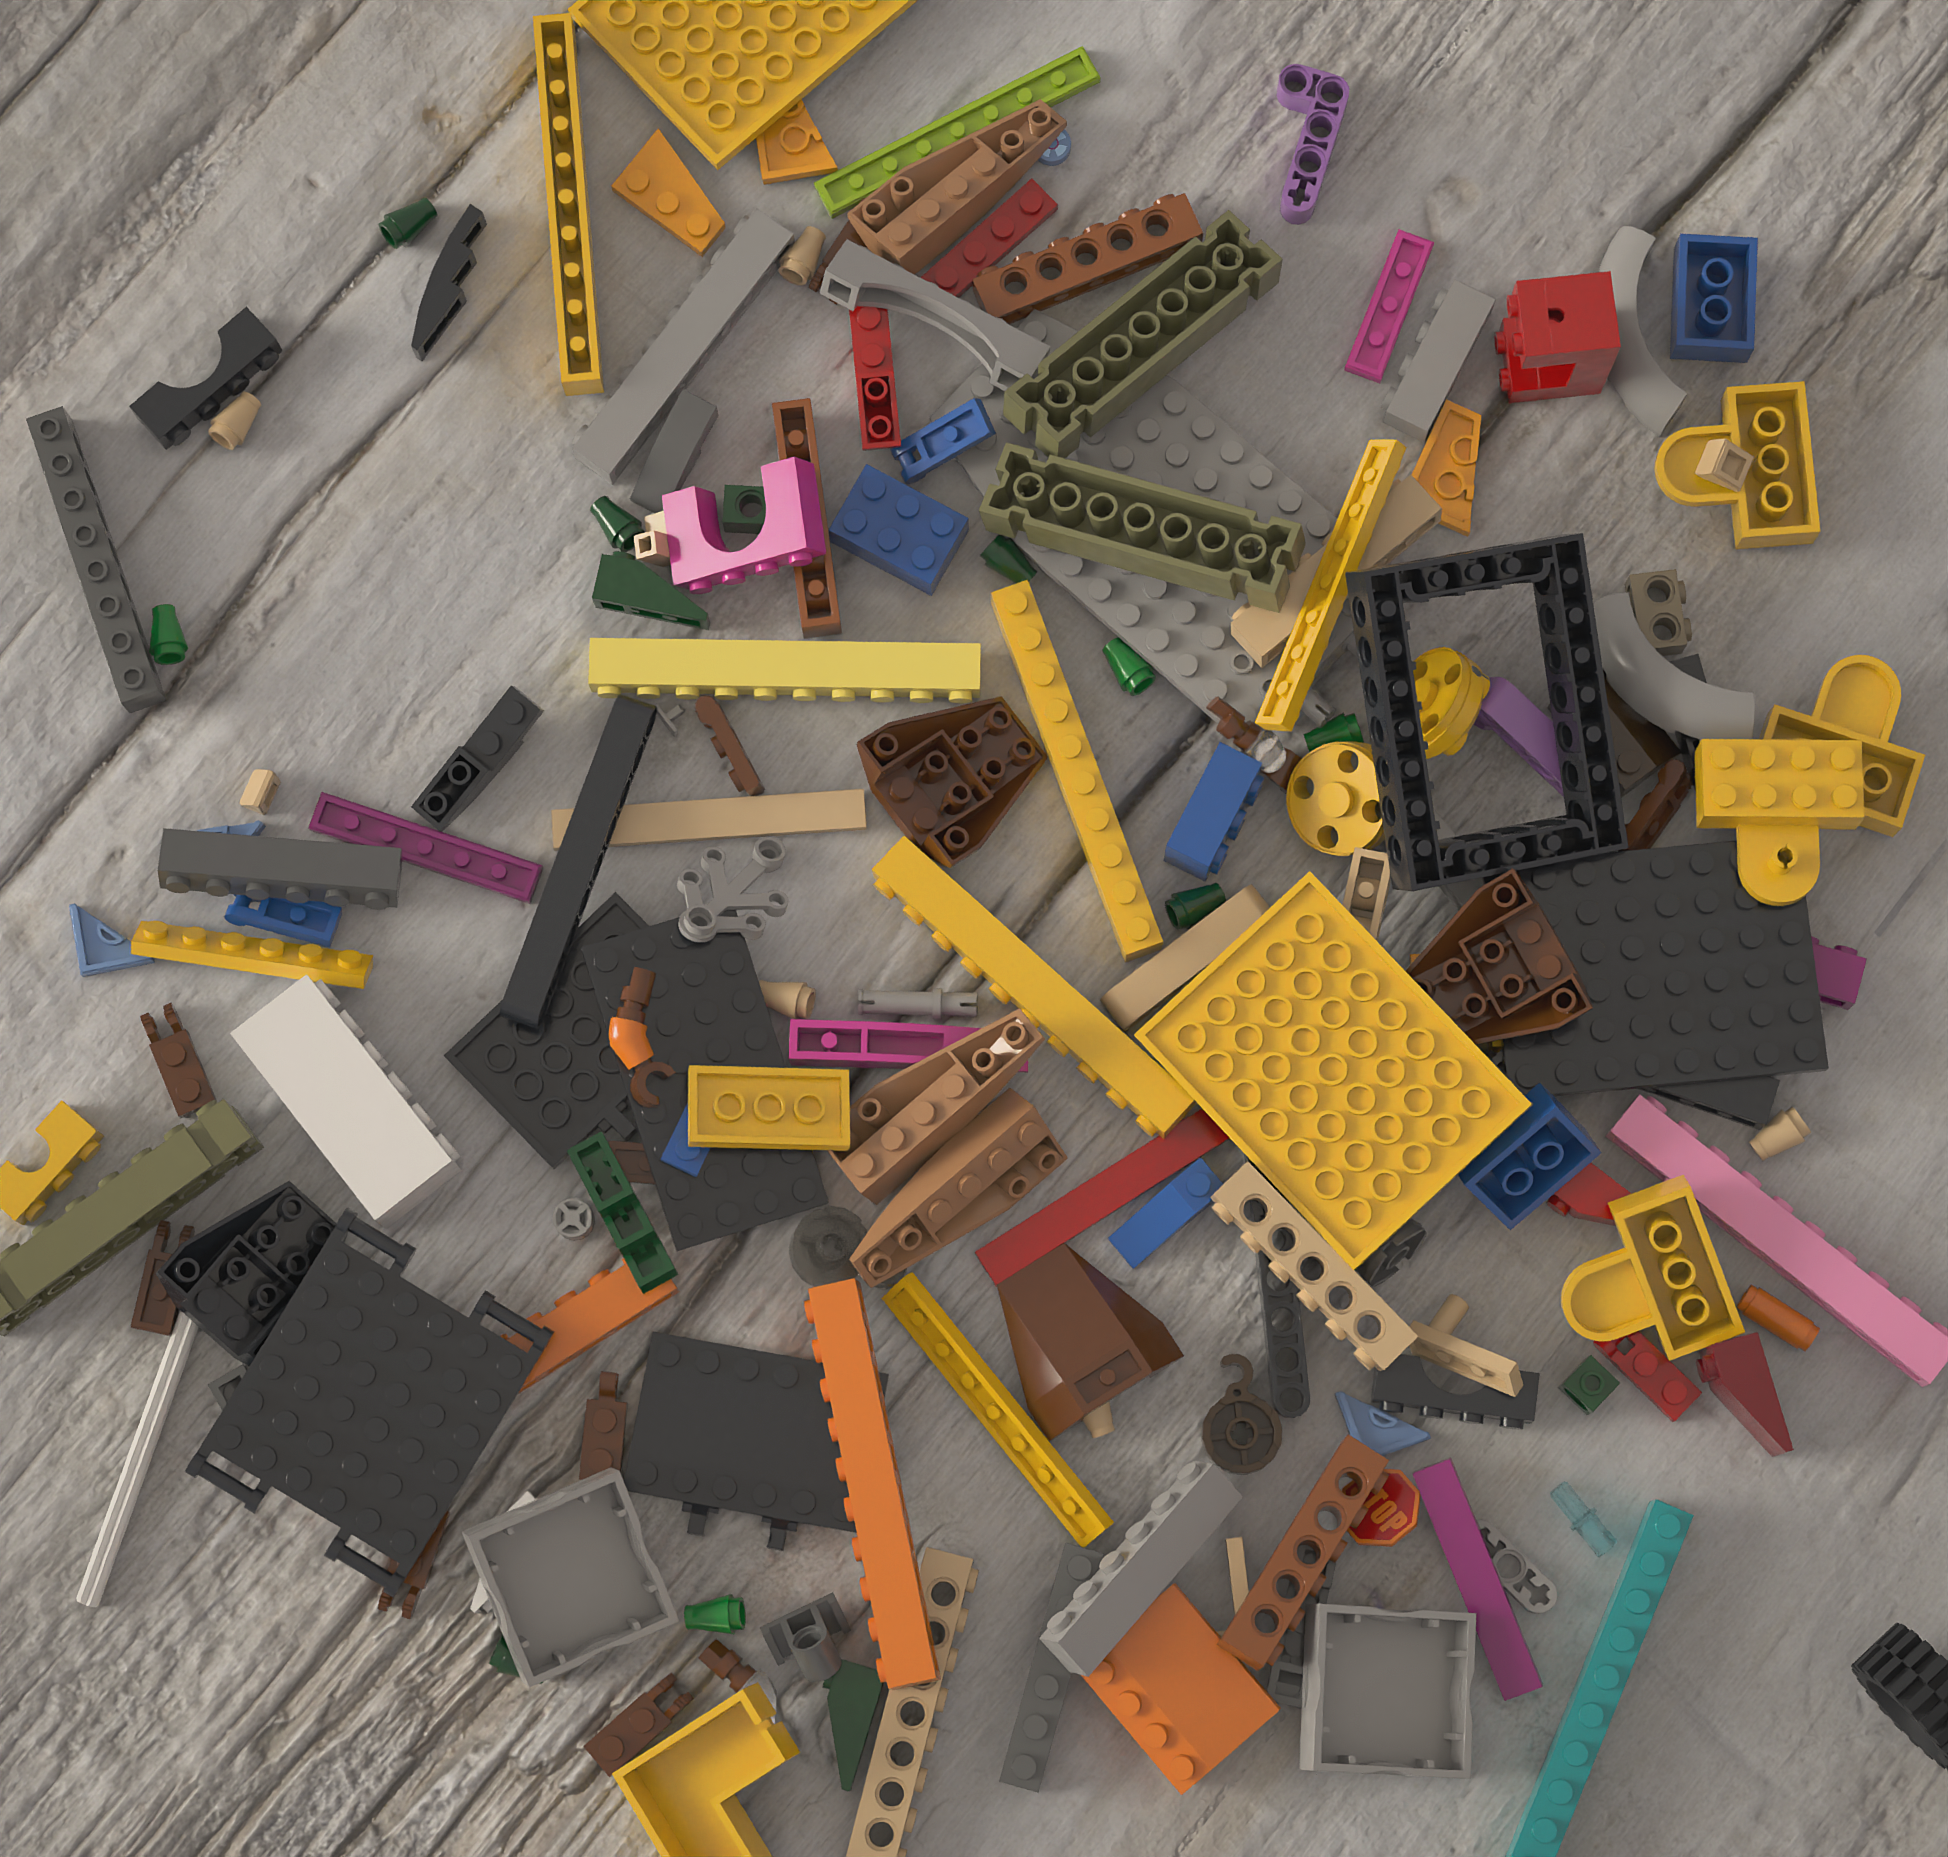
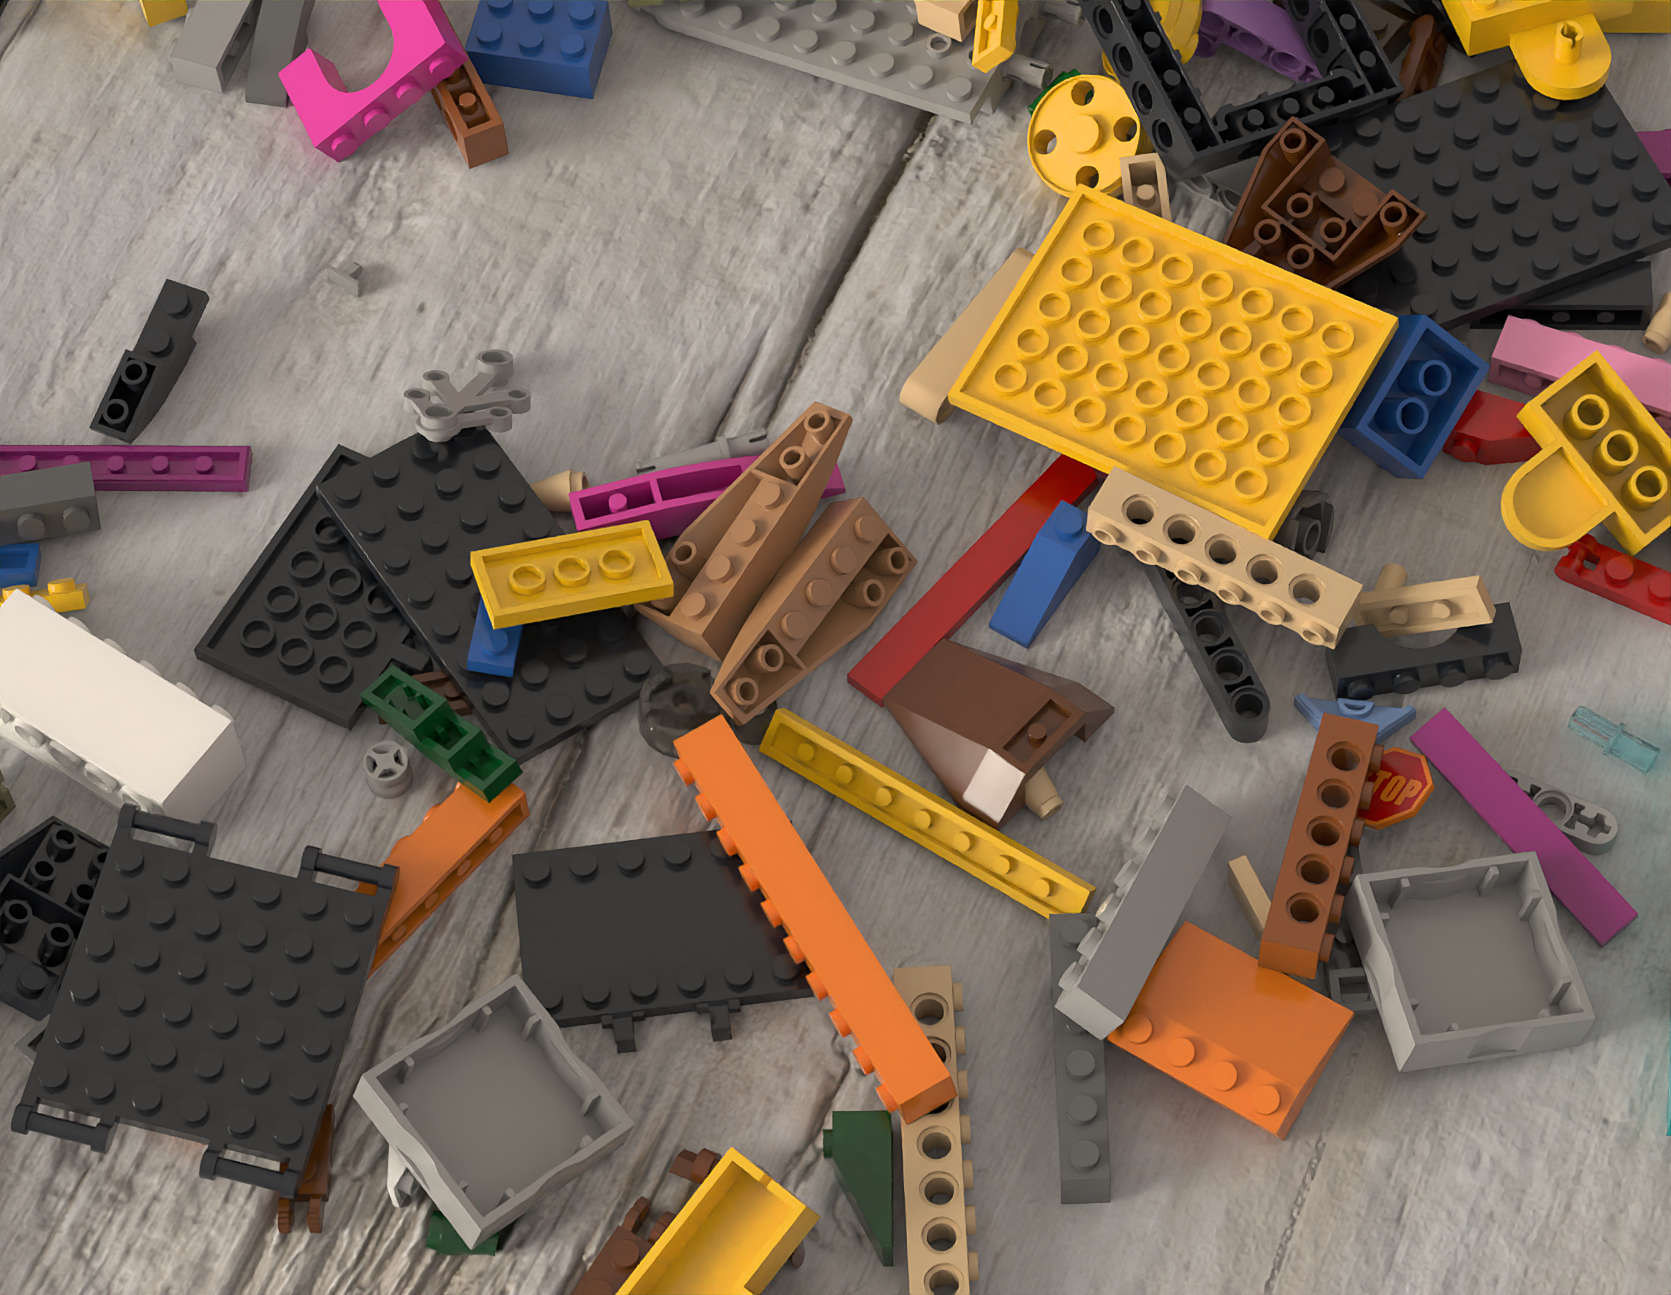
camera: 15 degrees left, 20 degrees down
(578, 861) = (288, 423): black beam -> none
(603, 1429) = (484, 956): reddish brown plate -> none
(616, 523) = (240, 119): dark green cone -> none
(629, 1037) = (400, 555): reddish brown piece -> none
(636, 590) = (284, 169): dark green slope -> none
(653, 544) = (283, 120): tan piece -> none
(717, 1615) = (676, 1120): green cone -> none
(728, 745) = (419, 277): reddish brown hinge -> none
(731, 818) = (409, 358): tan tile -> none
(734, 500) = (367, 60): dark green brick -> none
(785, 668) = (457, 194): light yellow brick -> none
(808, 1637) = (788, 1105): dark grey pin -> none
(951, 774) = (663, 240): reddish brown wedge -> none
(1006, 559) = (662, 40): dark green cone -> none
(1033, 987) = (782, 387): yellow brick -> none
(1076, 771) = (801, 201): yellow brick -> none
(1129, 668) = (823, 98): green cone -> none
(1193, 905) = (963, 286): dark green cone -> none
(1214, 812) = (959, 189): blue brick -> none
(1245, 1408) = (1200, 737): dark brown piece -> none
(1256, 742) = (984, 107): reddish brown piece -> none
(1589, 1385) = (1567, 605): dark green brick -> none

